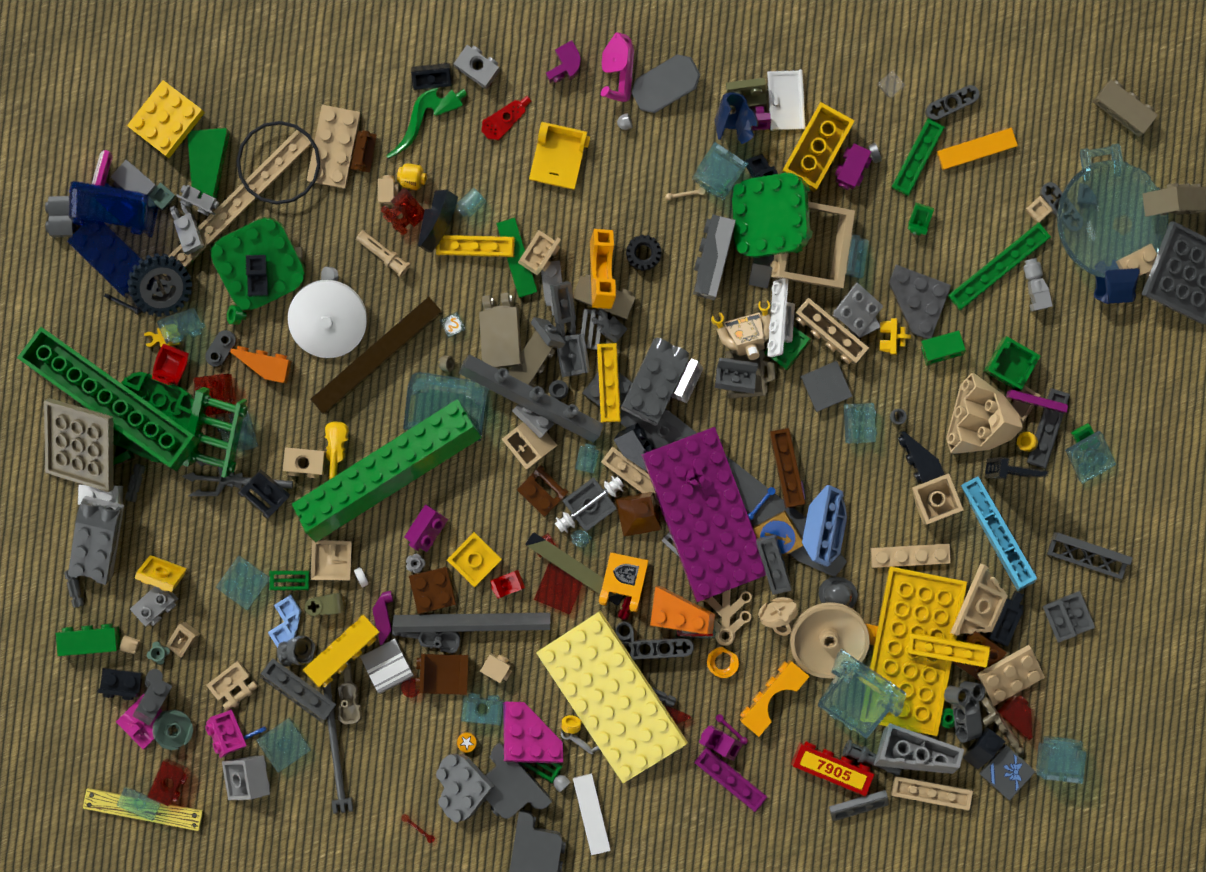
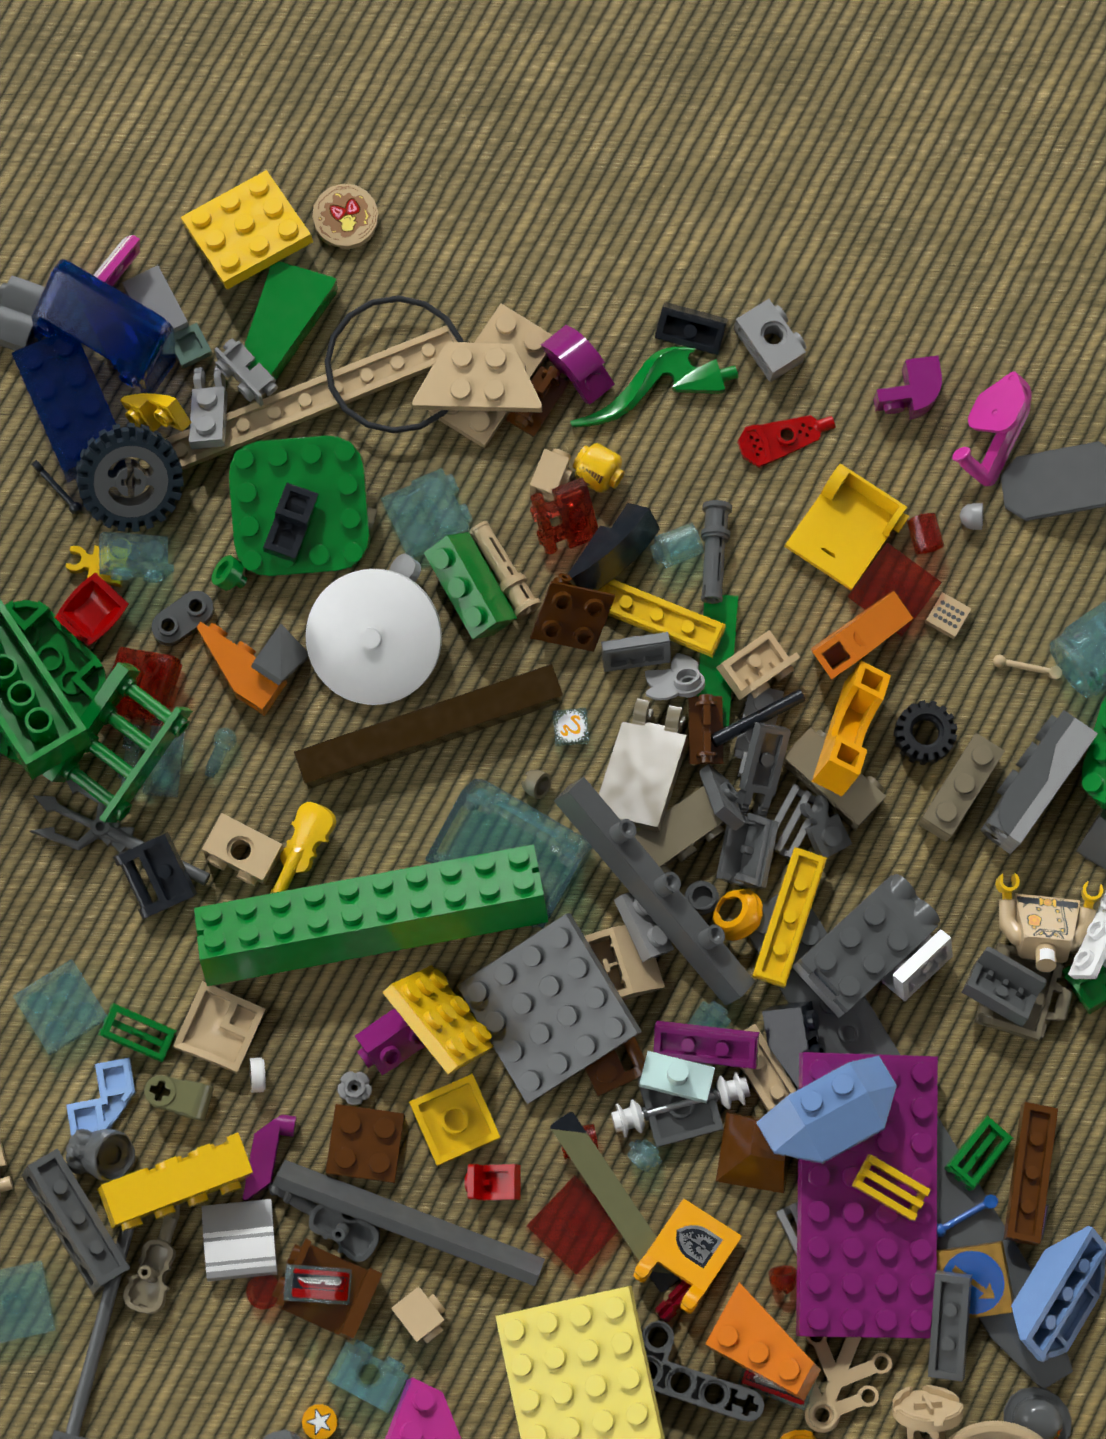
camera: 15 degrees right, 10 degrees down
(158, 242) = (154, 411): none -> yellow slope
(217, 88) = (345, 216): none -> tile
(270, 406) = (224, 741): none -> clear light blue piece
(281, 350) = (280, 656): none -> dark grey slope
(326, 154) = (478, 379): none -> tan wing
(329, 238) = (426, 512): none -> clear light blue plate
(368, 270) = (470, 585): none -> green brick
(377, 122) = (579, 361): none -> magenta brick
(429, 264) = (572, 615): none -> reddish brown hinge
(437, 674) = (317, 1284): none -> slope
(444, 511) = (439, 1018): none -> yellow plate
(471, 270) = (636, 651): none -> dark grey plate
(490, 189) = (715, 536): none -> dark grey pin
(499, 278) = (680, 680): none -> light grey plate
(500, 482) = (549, 1008): none -> dark grey plate
(525, 298) = (704, 720): none -> reddish brown hinge
(550, 281) = (761, 716): none -> black bar
(582, 491) = (676, 1077): none -> light aqua tile
(586, 394) = (747, 920): none -> light orange piece
(588, 214) = (861, 635): none -> orange slope
(590, 468) = (707, 1044): none -> magenta tile
(597, 180) = (895, 573): none -> clear red plate
(602, 142) = (925, 533): none -> clear red beam
(632, 182) = (948, 615): none -> tan tile
(670, 481) = (831, 1112): none -> medium blue wedge
(674, 275) = (961, 787): none -> dark tan brick
(677, 573) = (783, 1278): none -> clear red hinge
(732, 509) = (916, 1201): none -> yellow tile
(751, 483) = (961, 1173): none -> green tile

